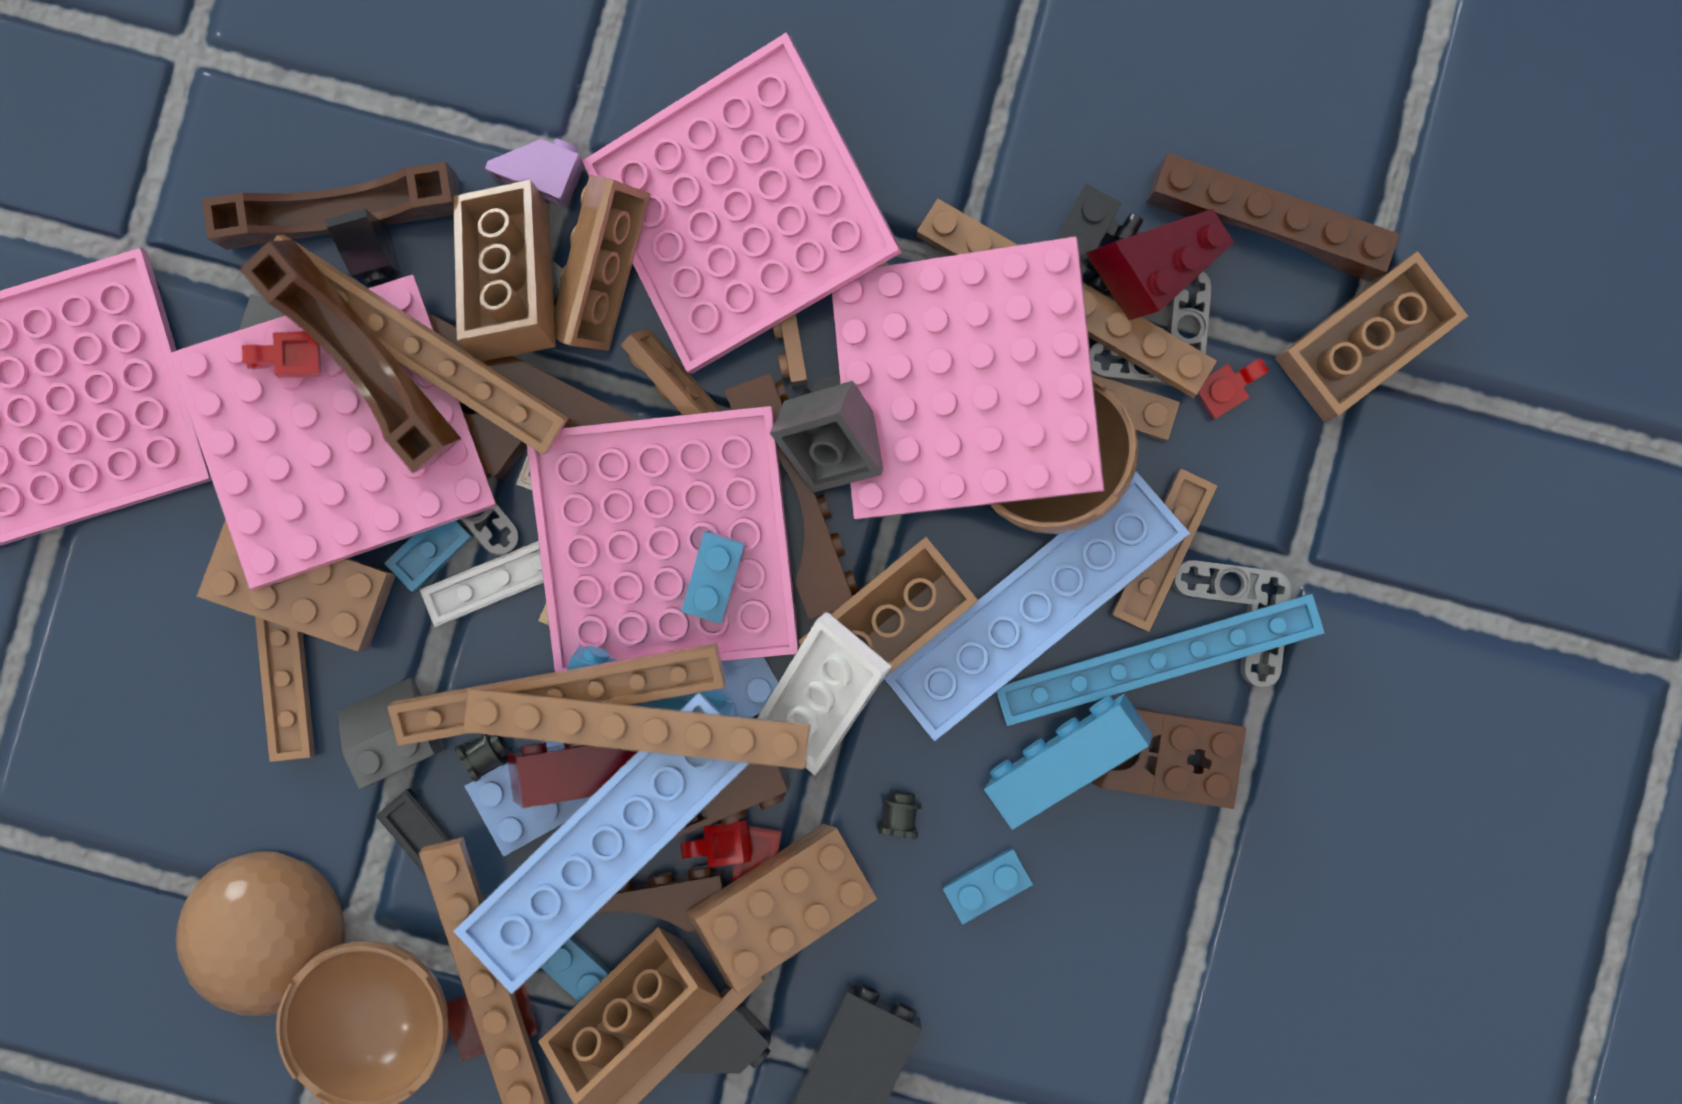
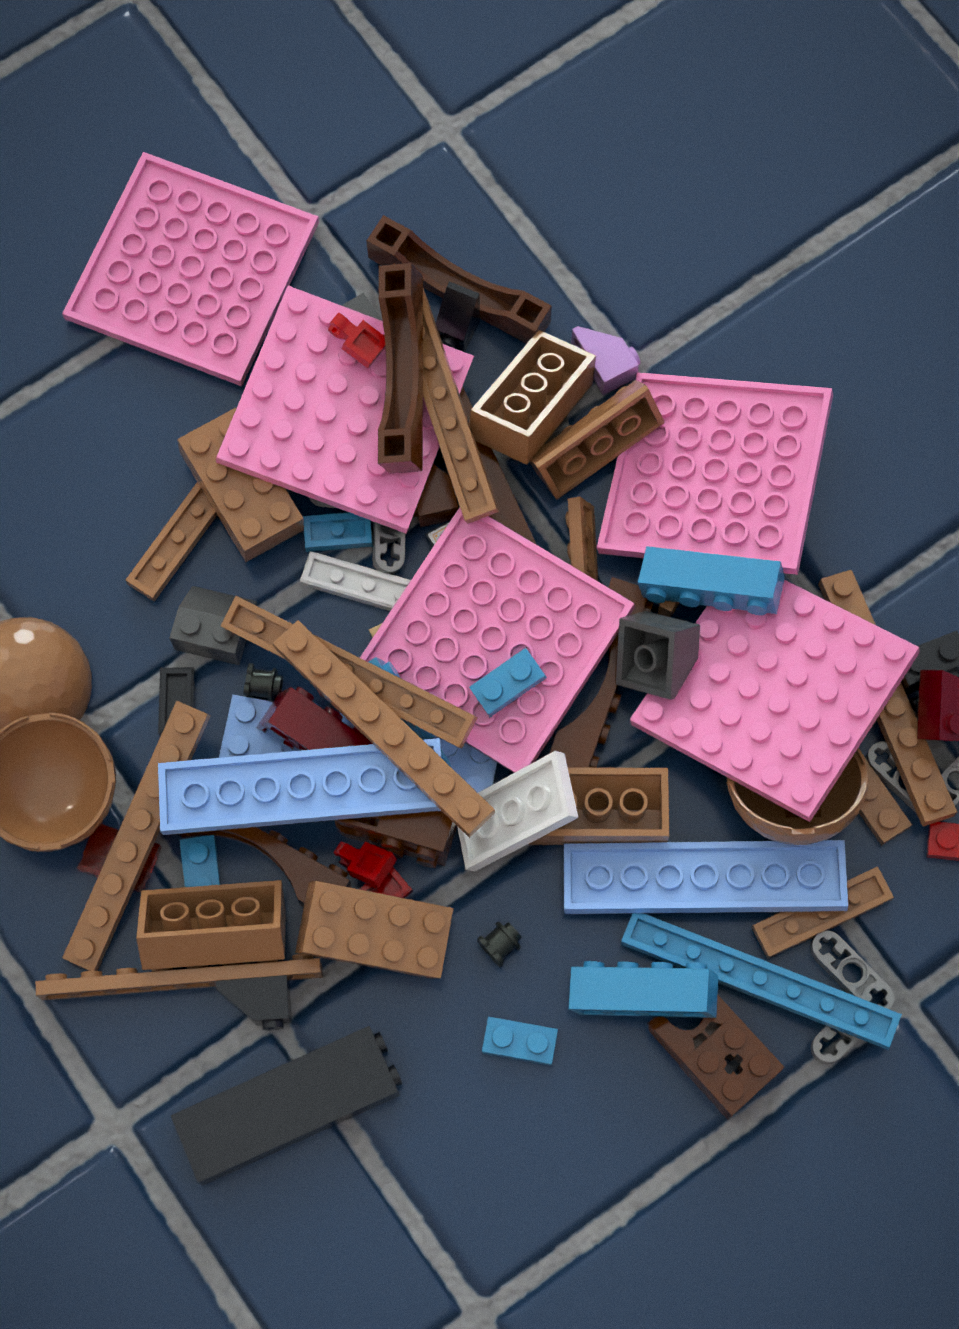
camera: 40 degrees right, 15 degrees down
(825, 323) = (711, 580): none -> dark azure brick

